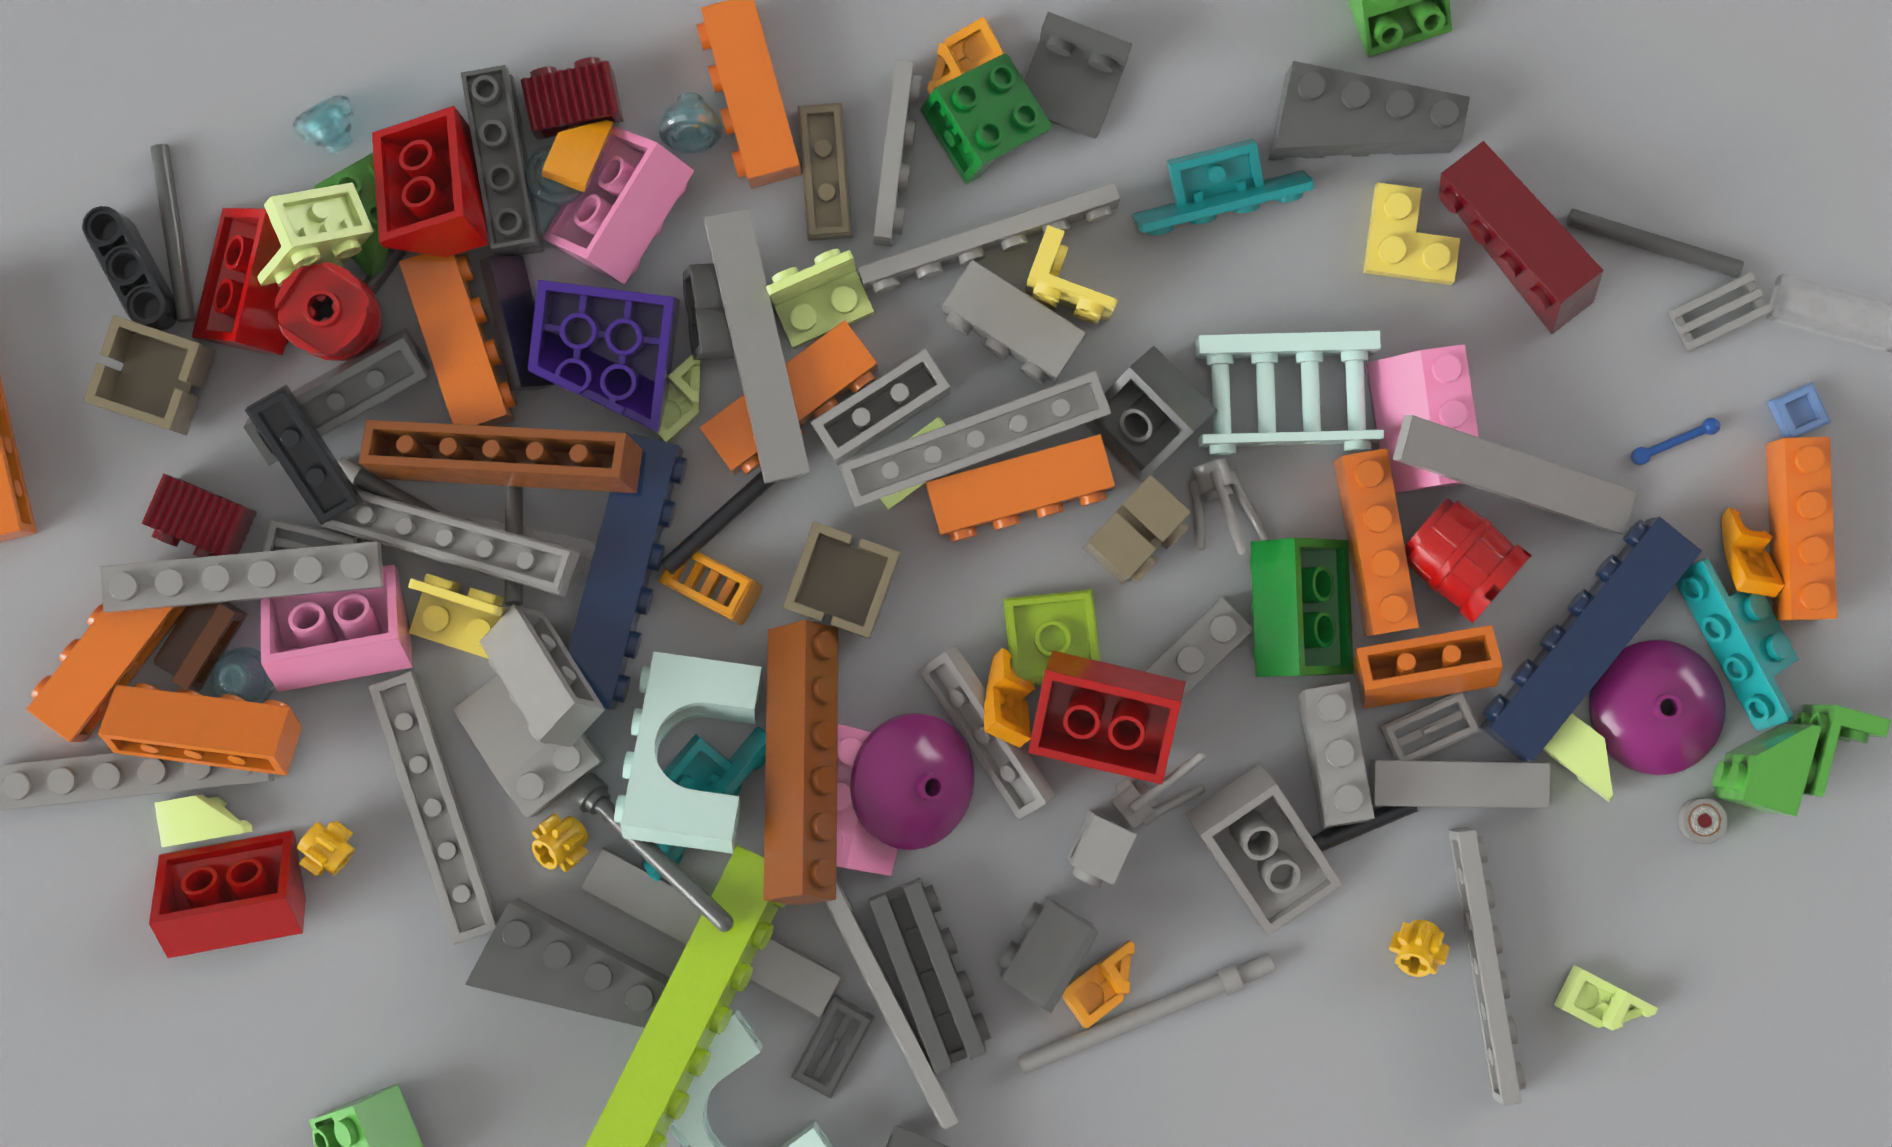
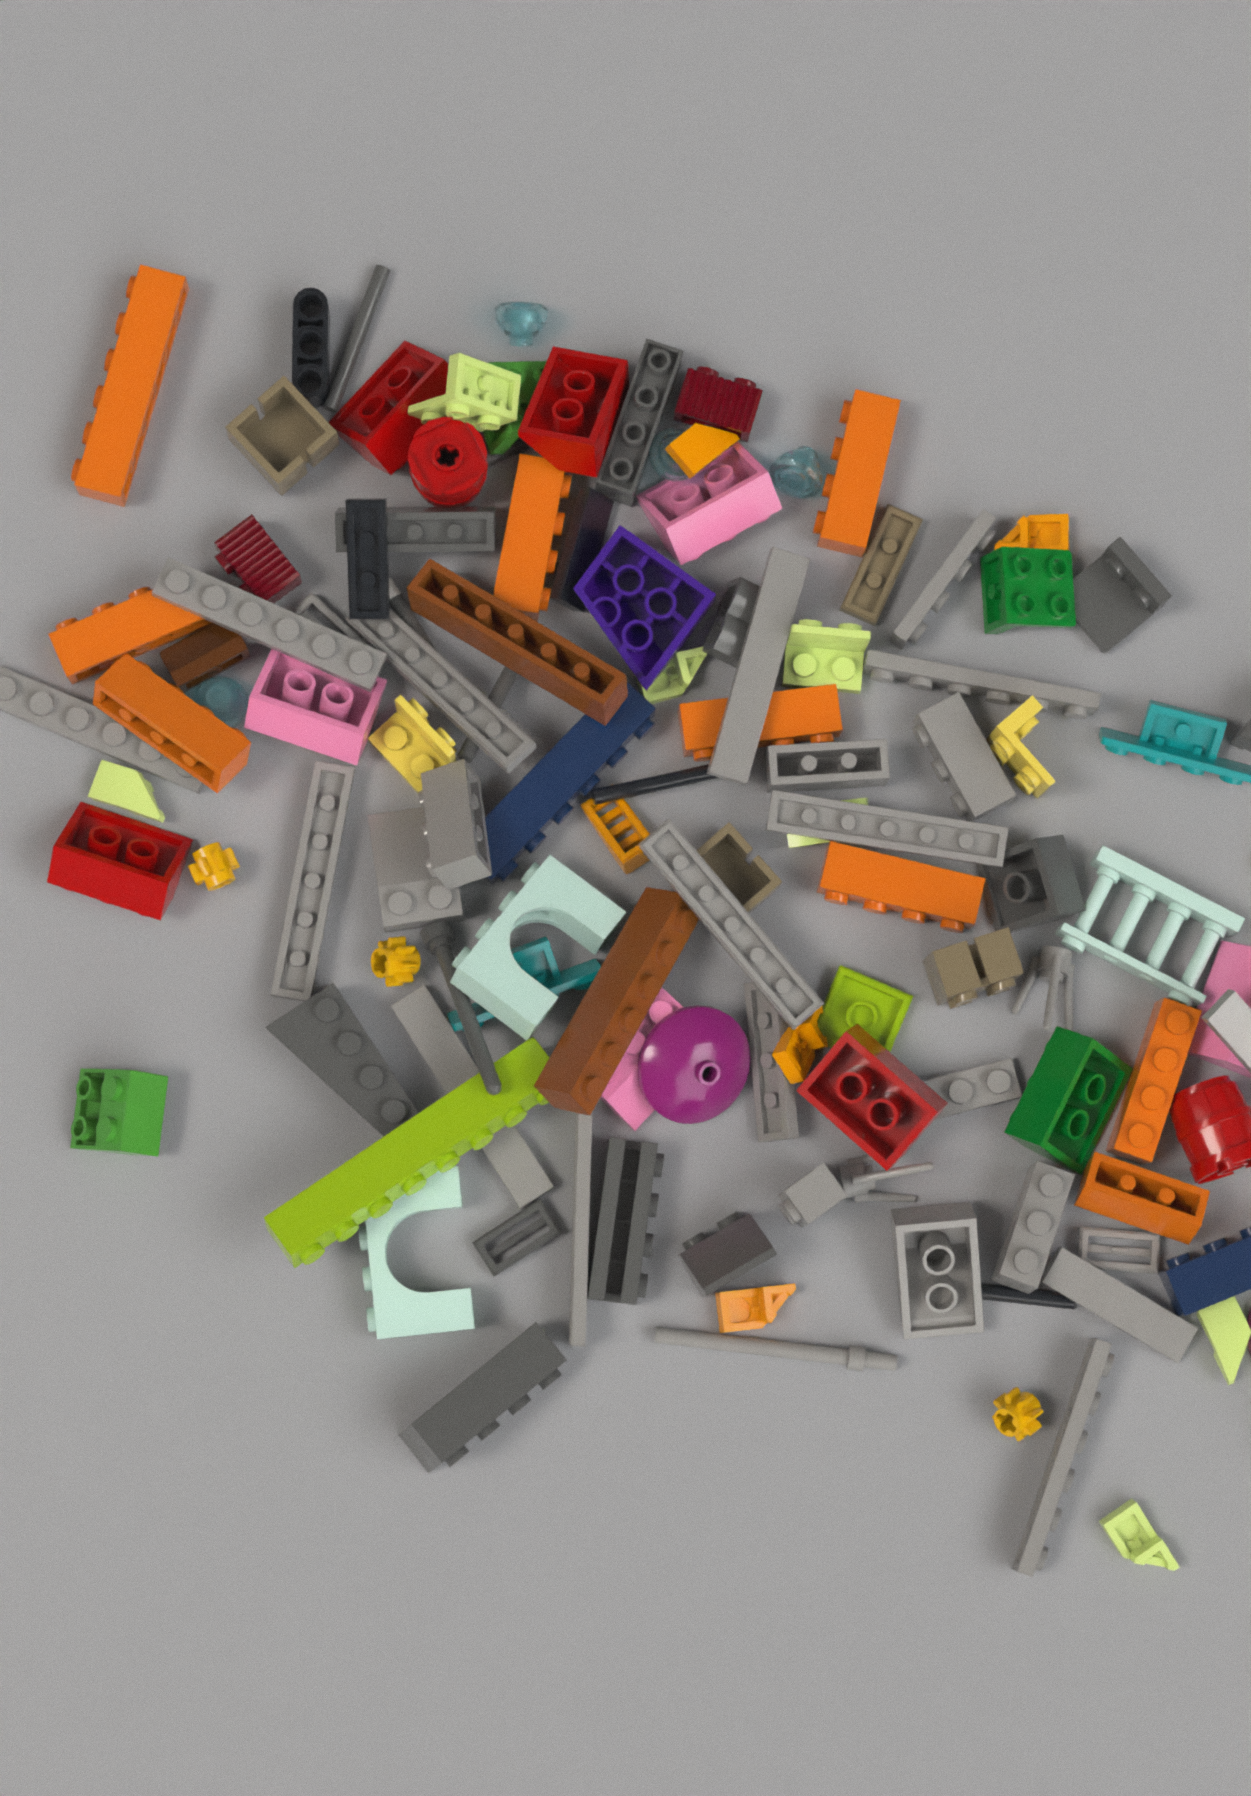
camera: 20 degrees right, 5 degrees down
(870, 624) = (730, 924): none -> light grey tile

